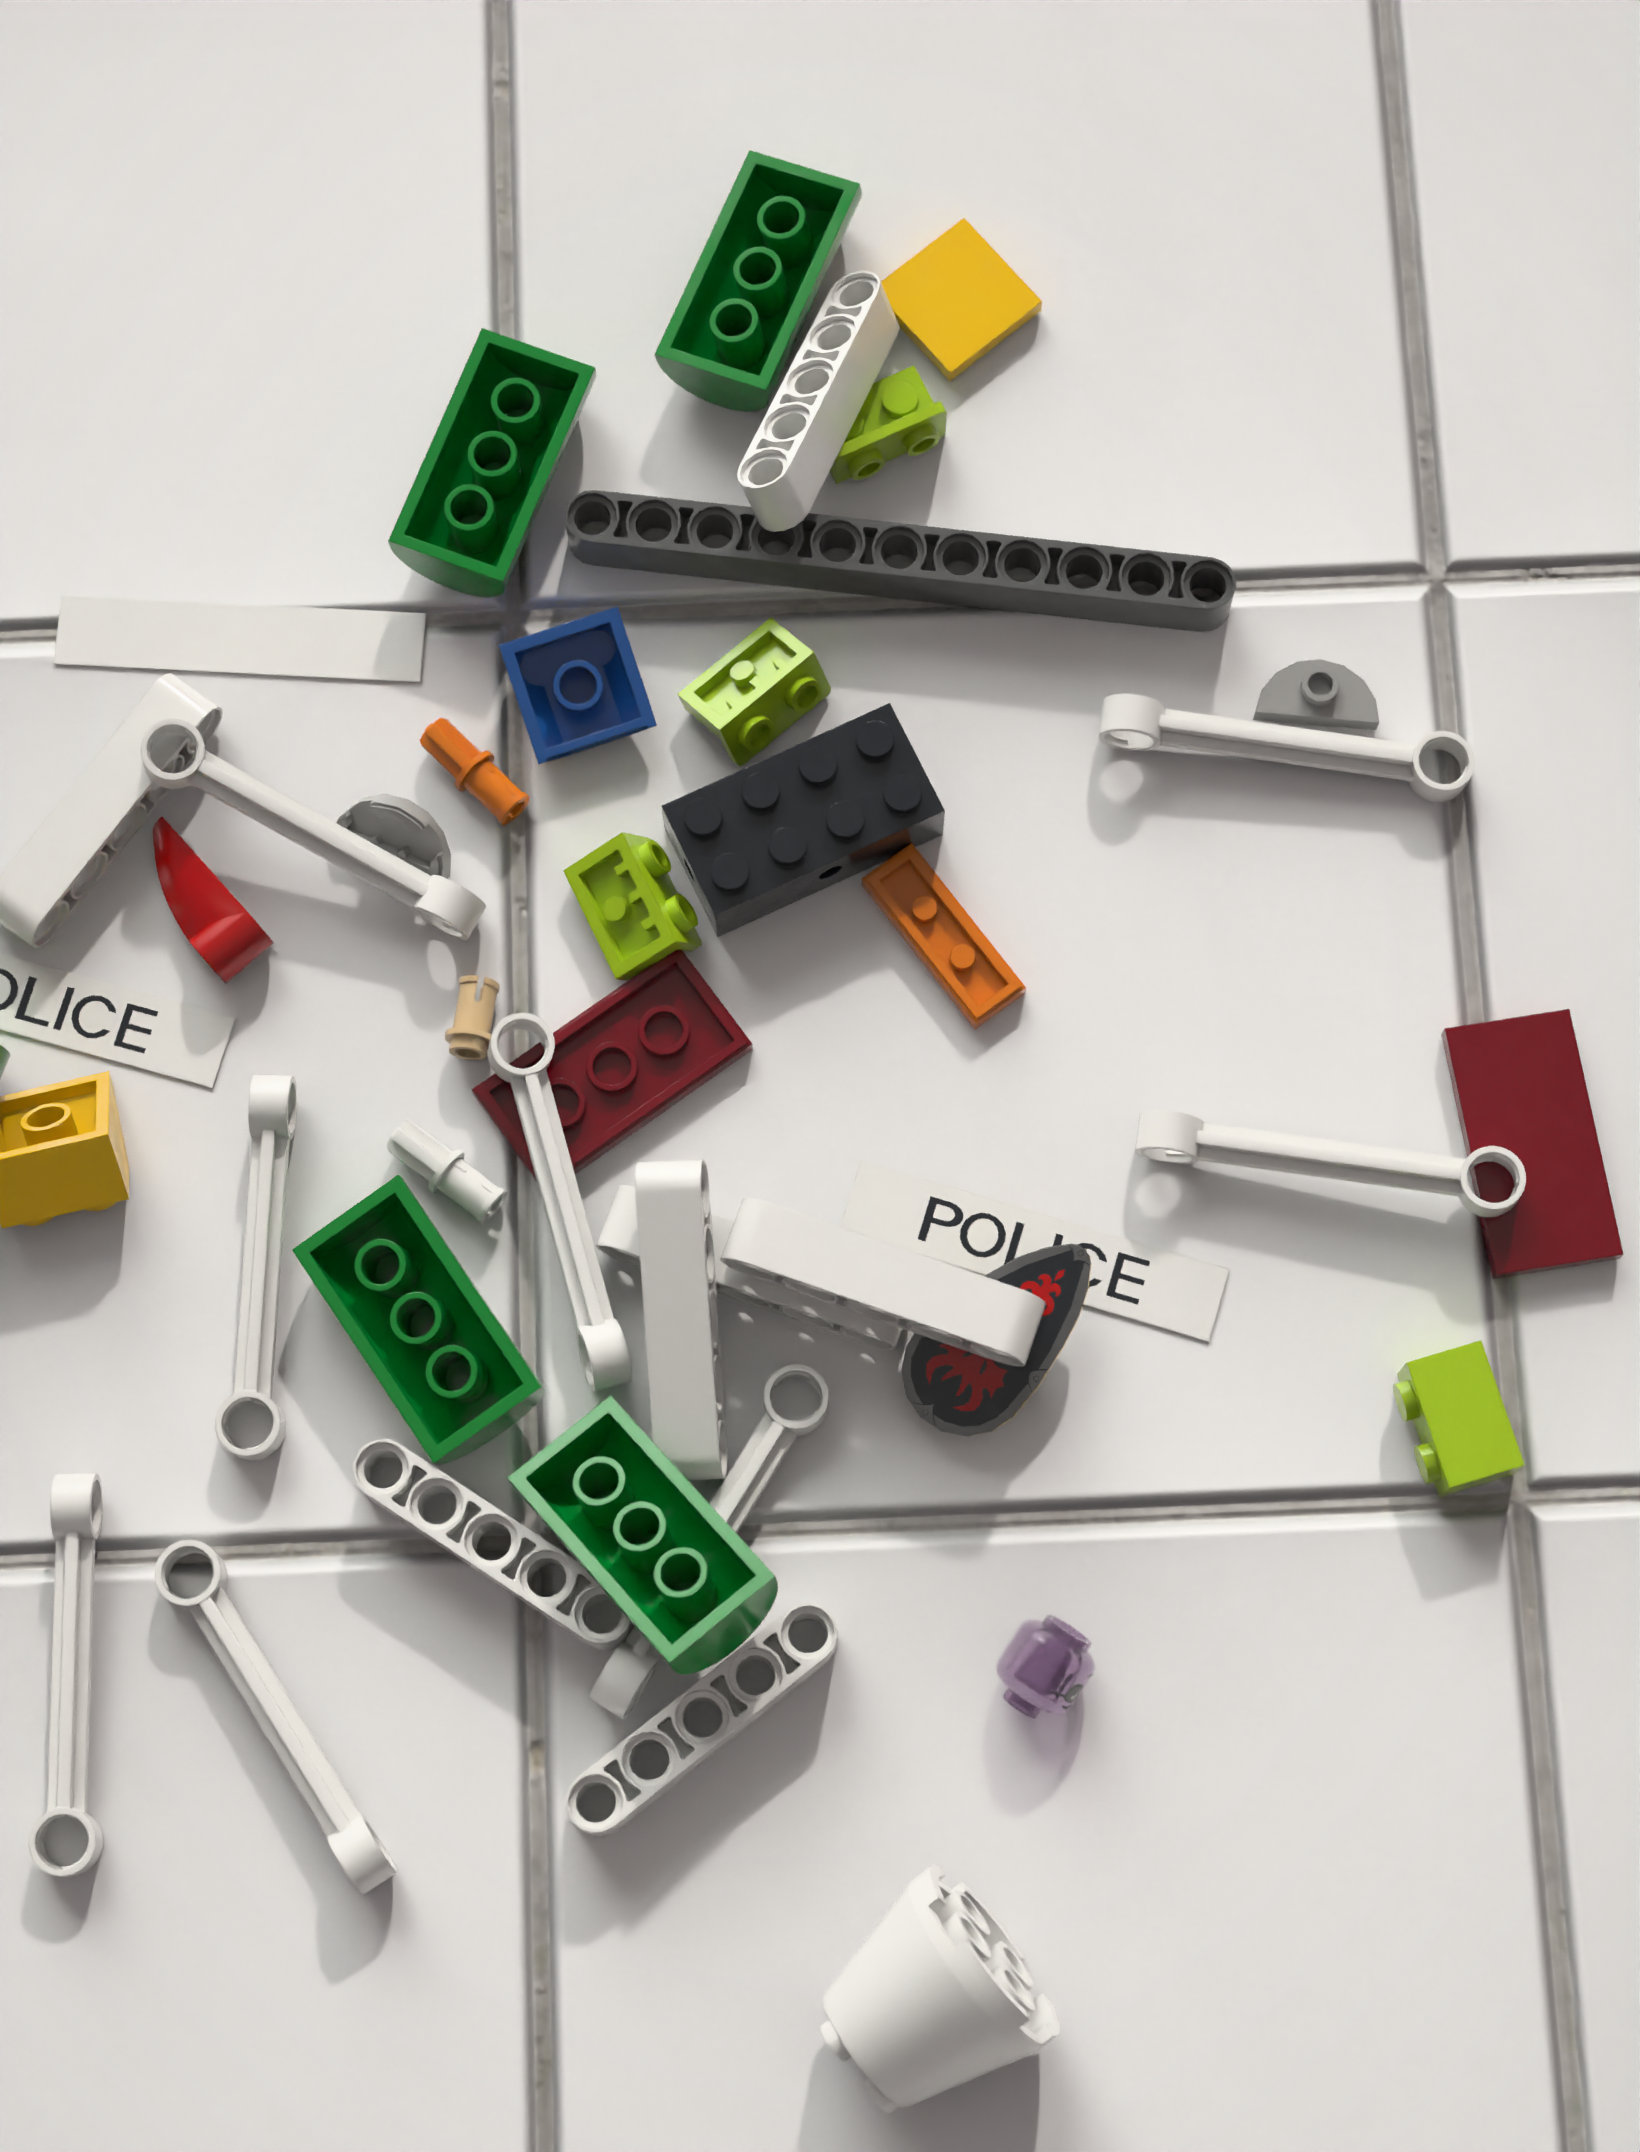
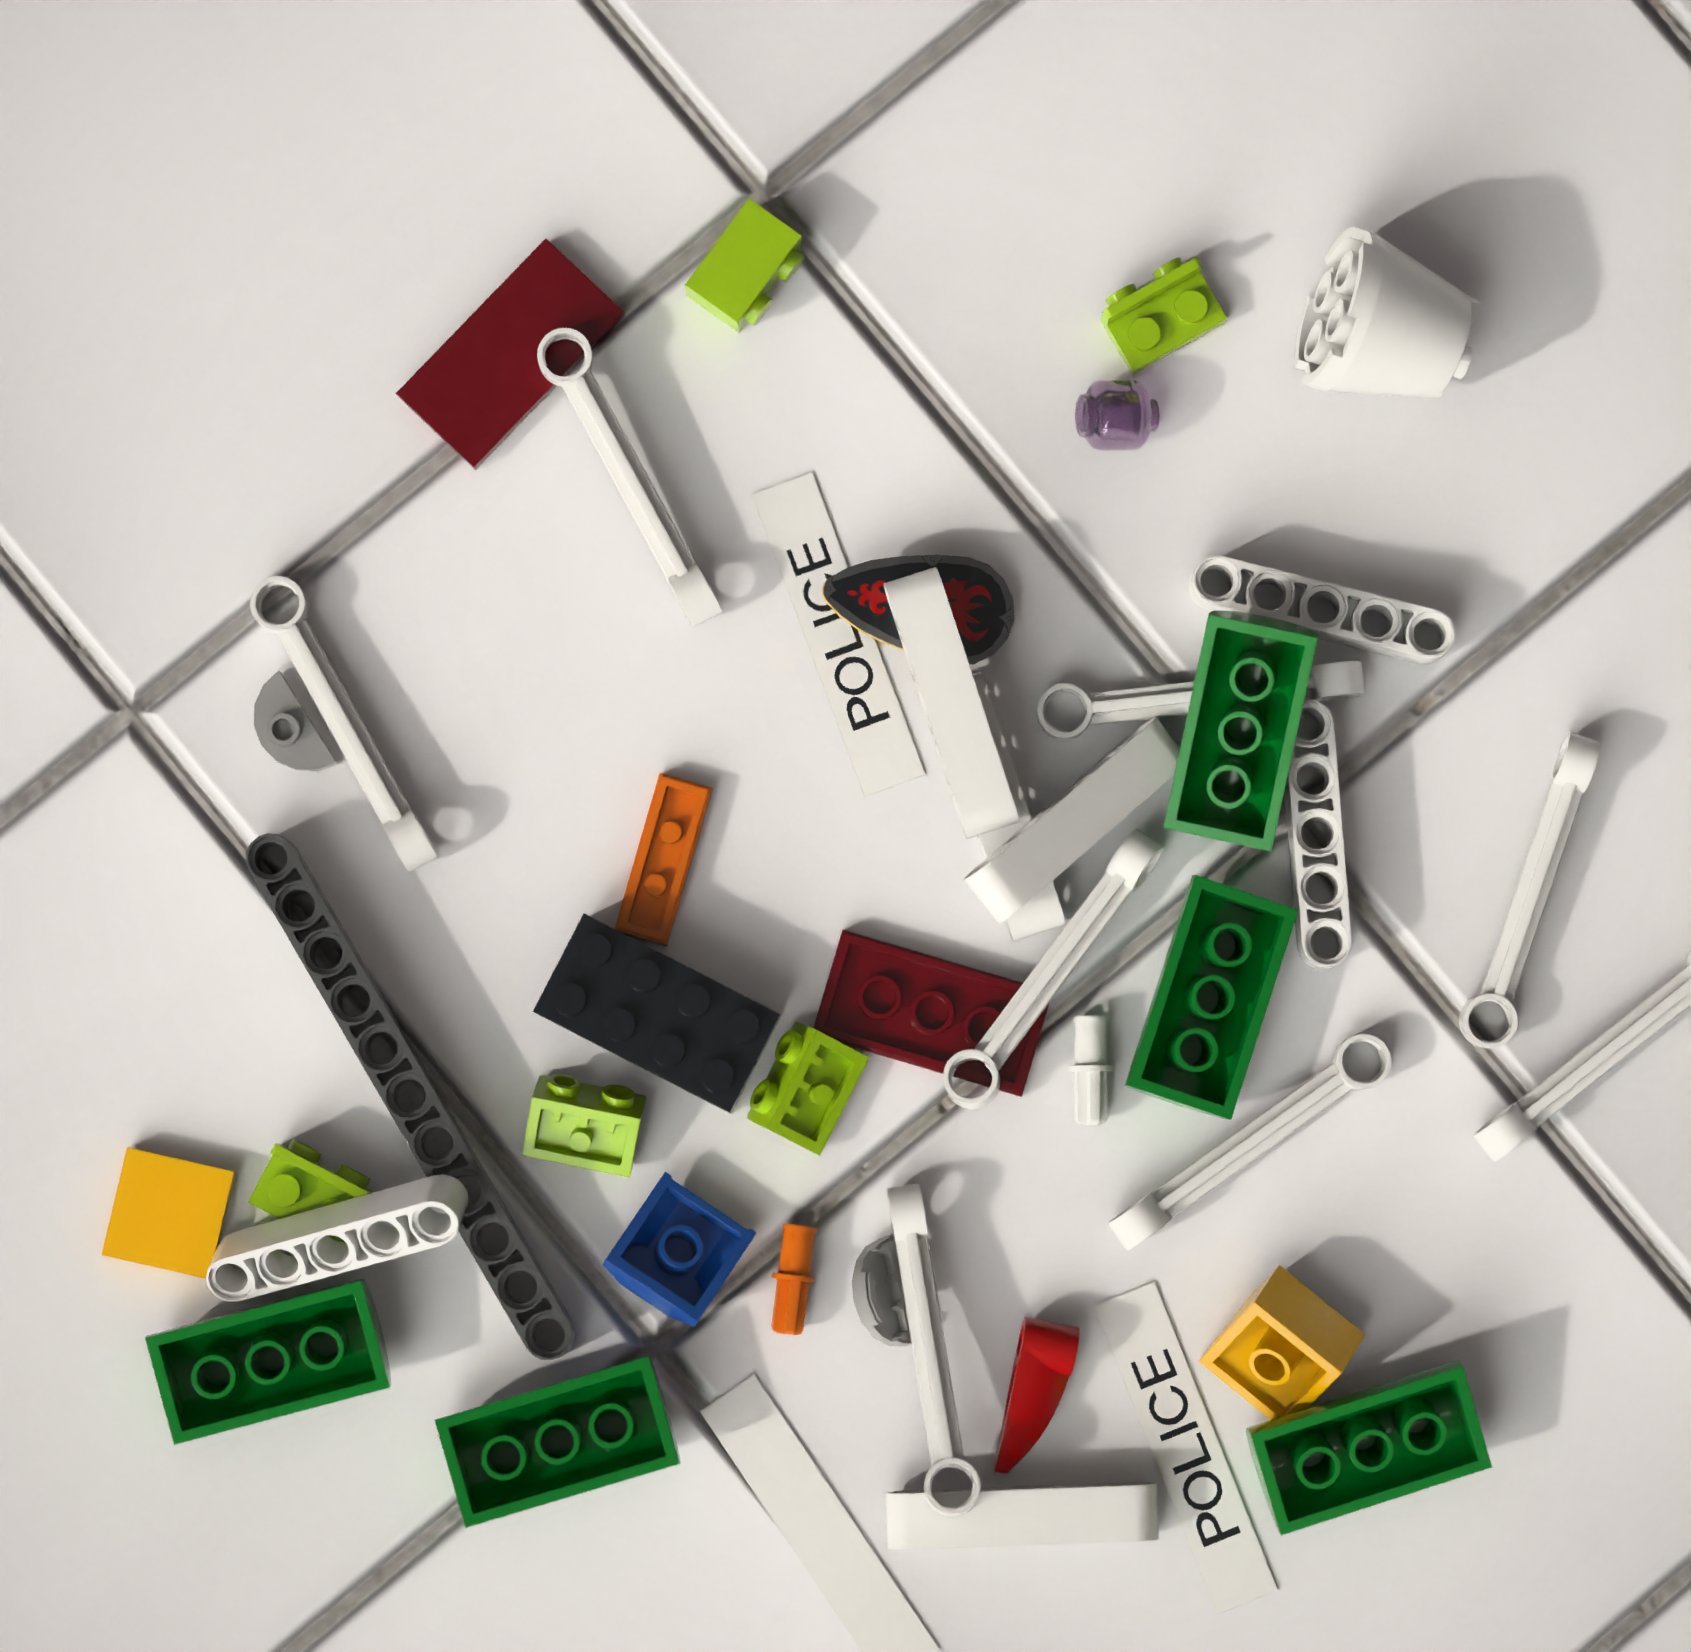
camera: 130 degrees left, 10 degrees up
(472, 1019) = (971, 1135): tan pin -> none
(1112, 1793) = (1162, 314): none -> lime bracket

